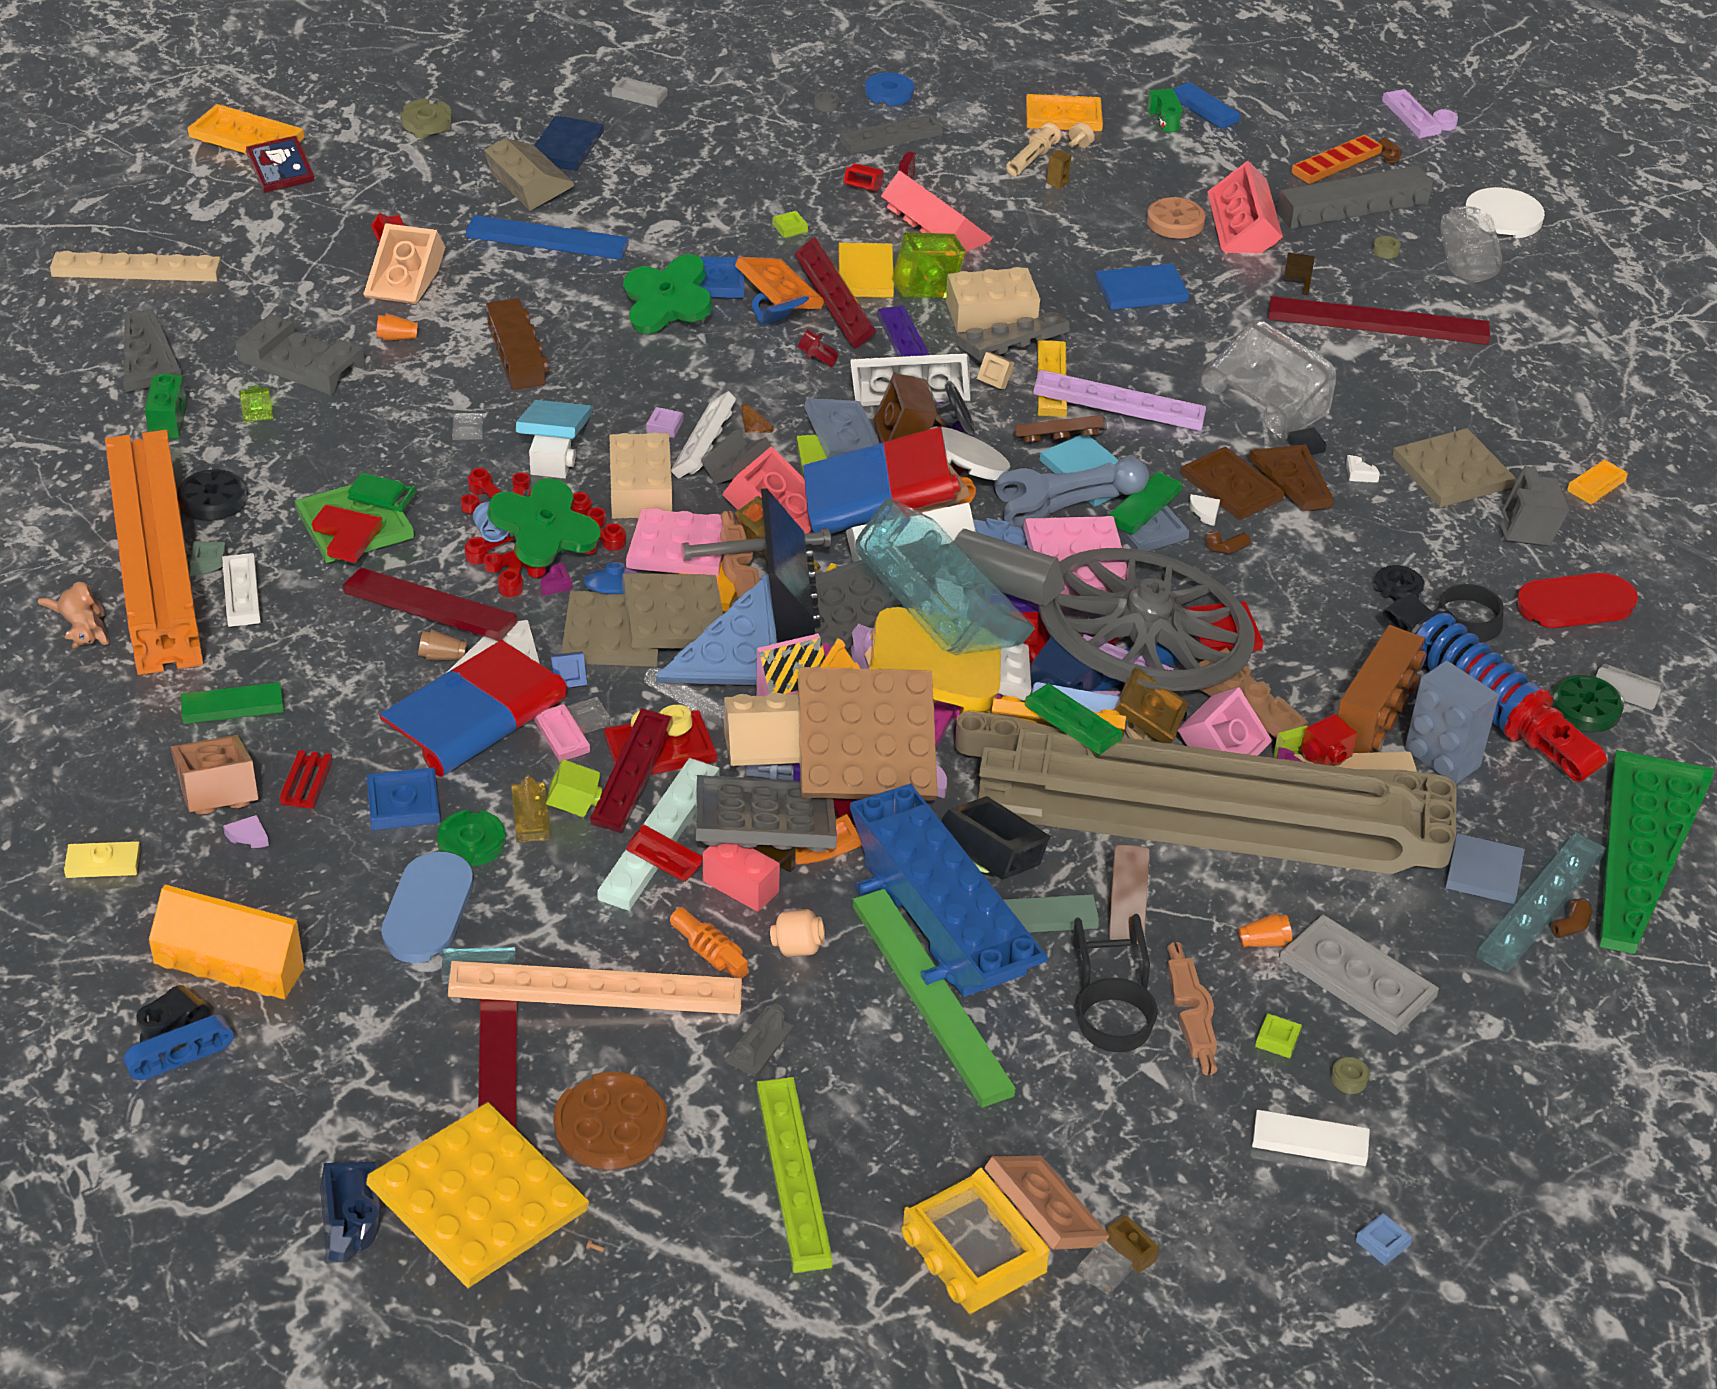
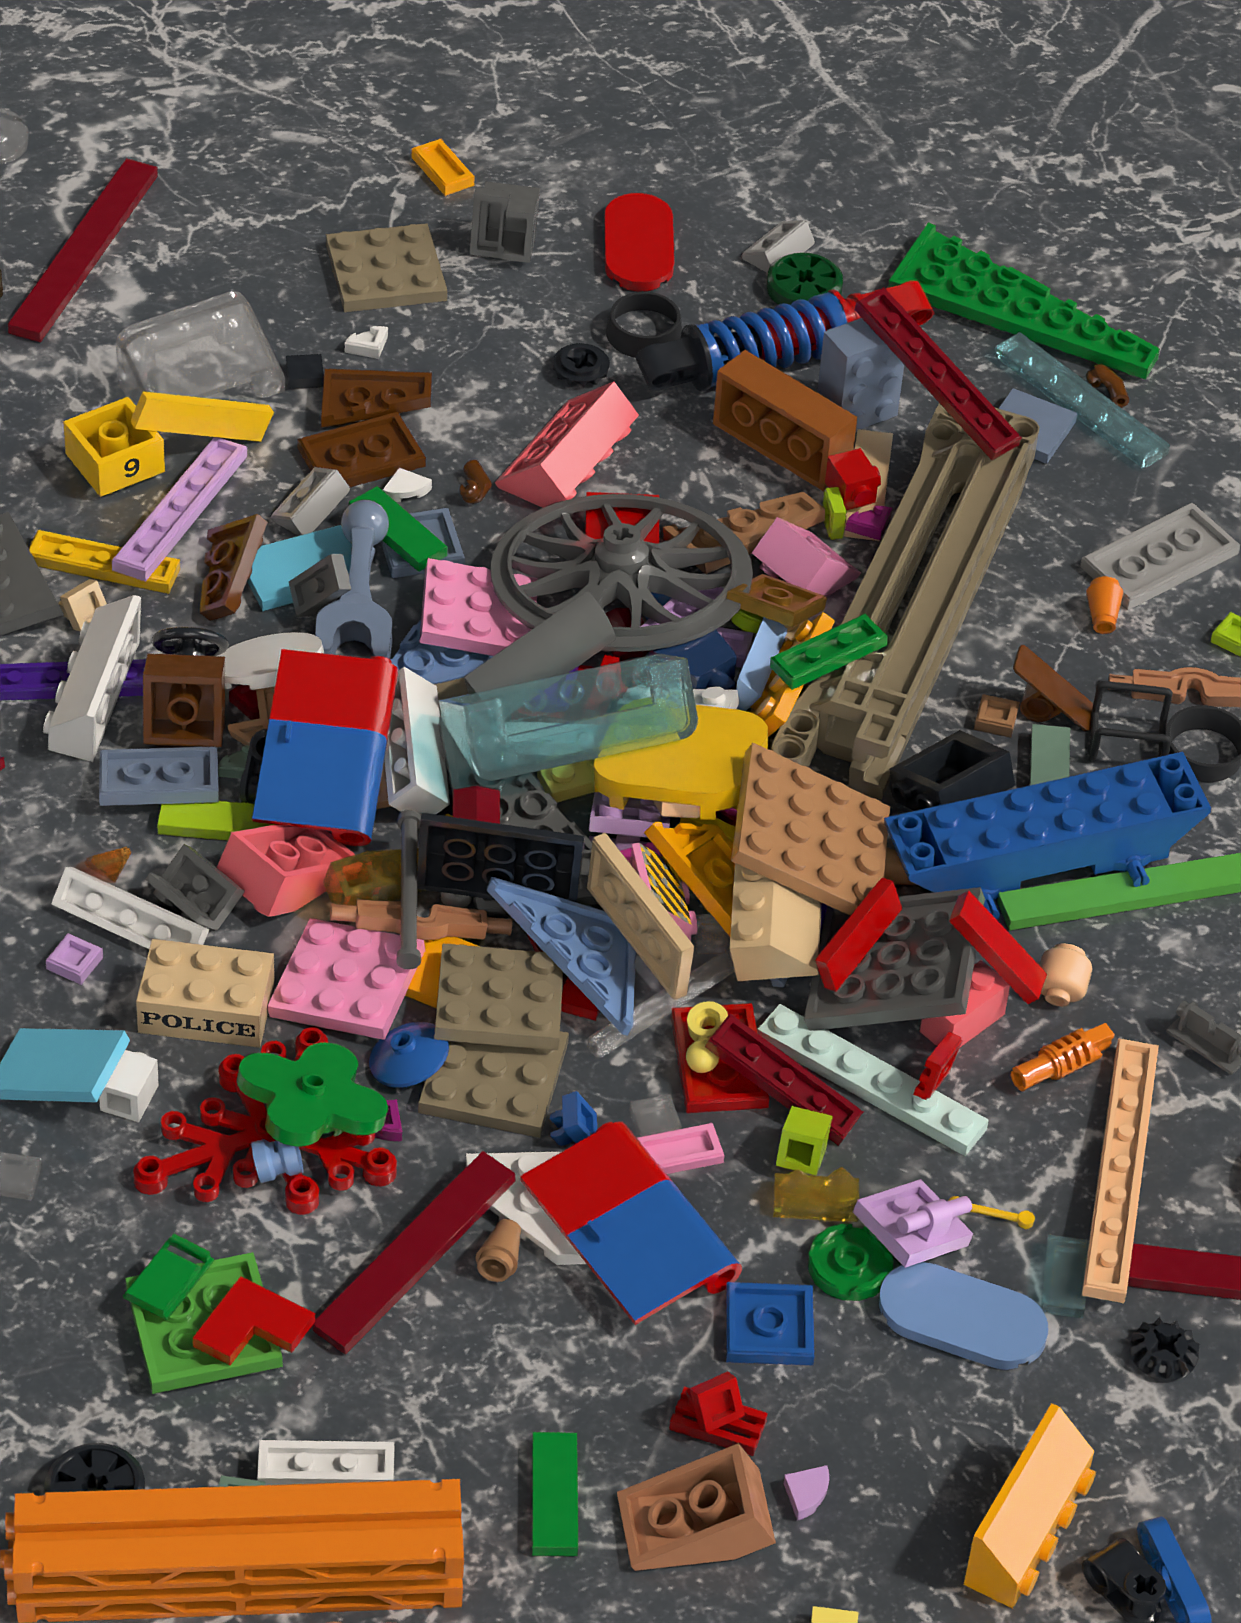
camera: 80 degrees left, 5 degrees up
(307, 760) = (716, 1402): none -> red tile
(412, 1044) = (1162, 1363): none -> black gear
(503, 858) = (915, 1222): none -> lavender plate
(536, 938) = (1024, 1219): none -> yellow hinge
(734, 662) = (640, 916): none -> tan tile
(774, 778) = (858, 934): none -> red tile
(777, 856) = (998, 947): none -> red tile
(839, 566) = (477, 804): none -> dark red piece
(1052, 460) = (319, 585): none -> dark grey plate
(1097, 875) = (996, 715): none -> medium nougat tile
(1158, 354) = (110, 449): none -> yellow brick
(1167, 462) = (311, 501): none -> light grey slope
(1200, 380) = (201, 416): none -> yellow tile
(1289, 582) = (570, 447): none -> coral slope
(1437, 740) = (938, 374): none -> dark red tile

